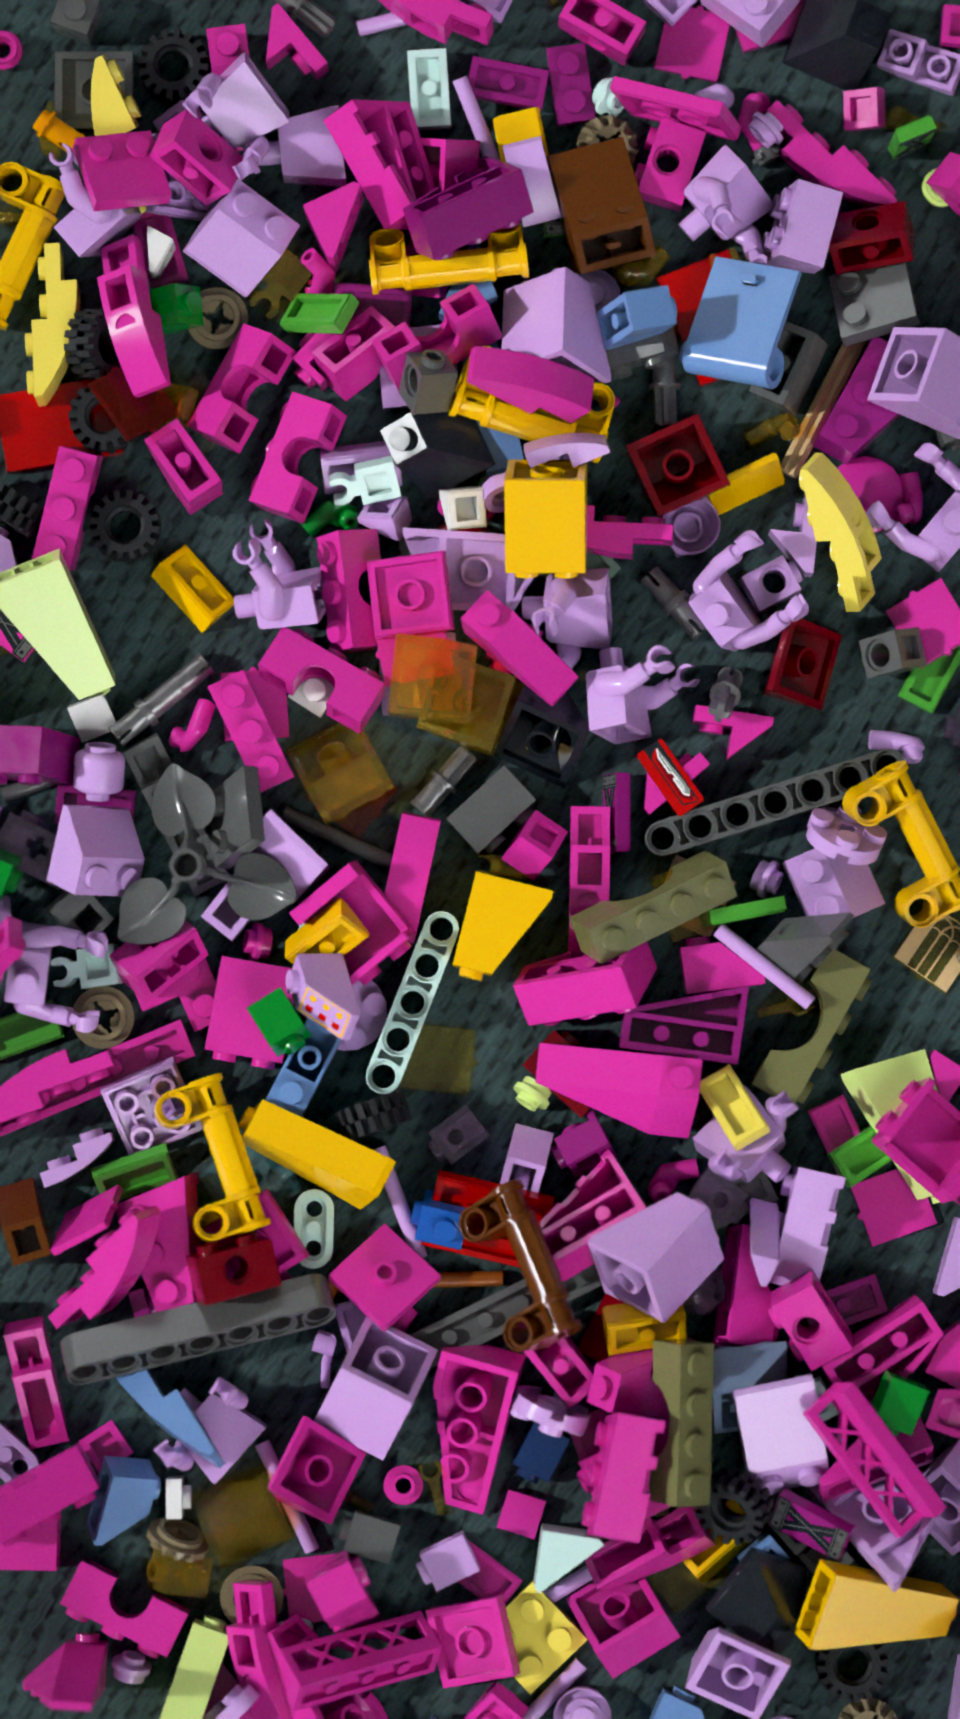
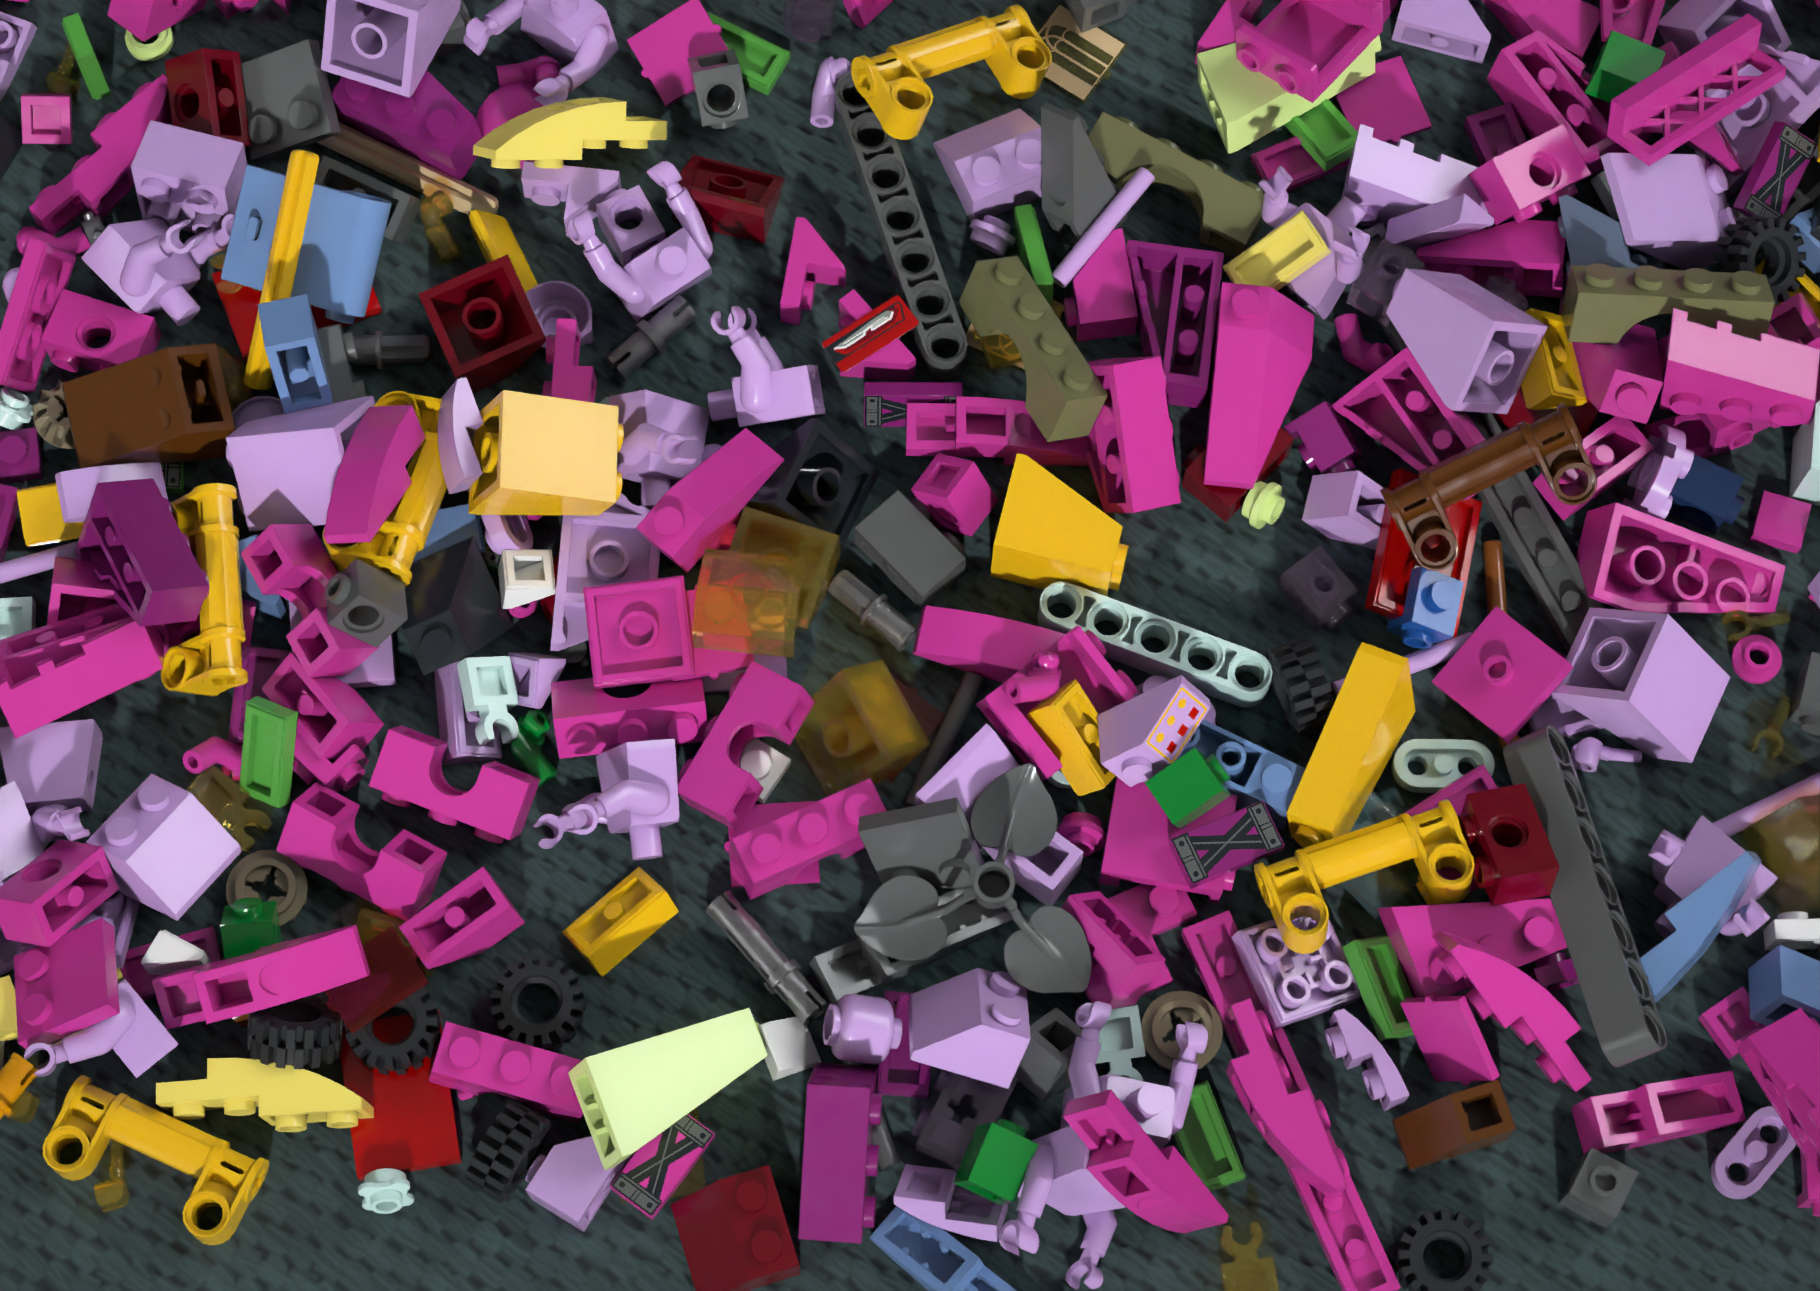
camera: 90 degrees left, 15 degrees down
(197, 727) = (806, 913): dark pink arm -> none
(239, 1052) = (1226, 844): none -> tile
(316, 1471) = (1752, 752): dark pink slope -> none
(333, 220) = (151, 732): dark pink slope -> none
(363, 908) = (1041, 680): none -> dark pink arm
(441, 1060) = (1224, 611): clear yellow piece -> none
(498, 868) = (981, 546): clear yellow hand -> none
(725, 693) = (766, 272): flat silver axle -> none
(729, 305) = (283, 256): none -> yellow axle
(766, 129) = (64, 221): lavender plate -> none
(785, 1006) = (1146, 214): clear yellow hand -> none
(835, 832) = (941, 139): lavender plate -> none

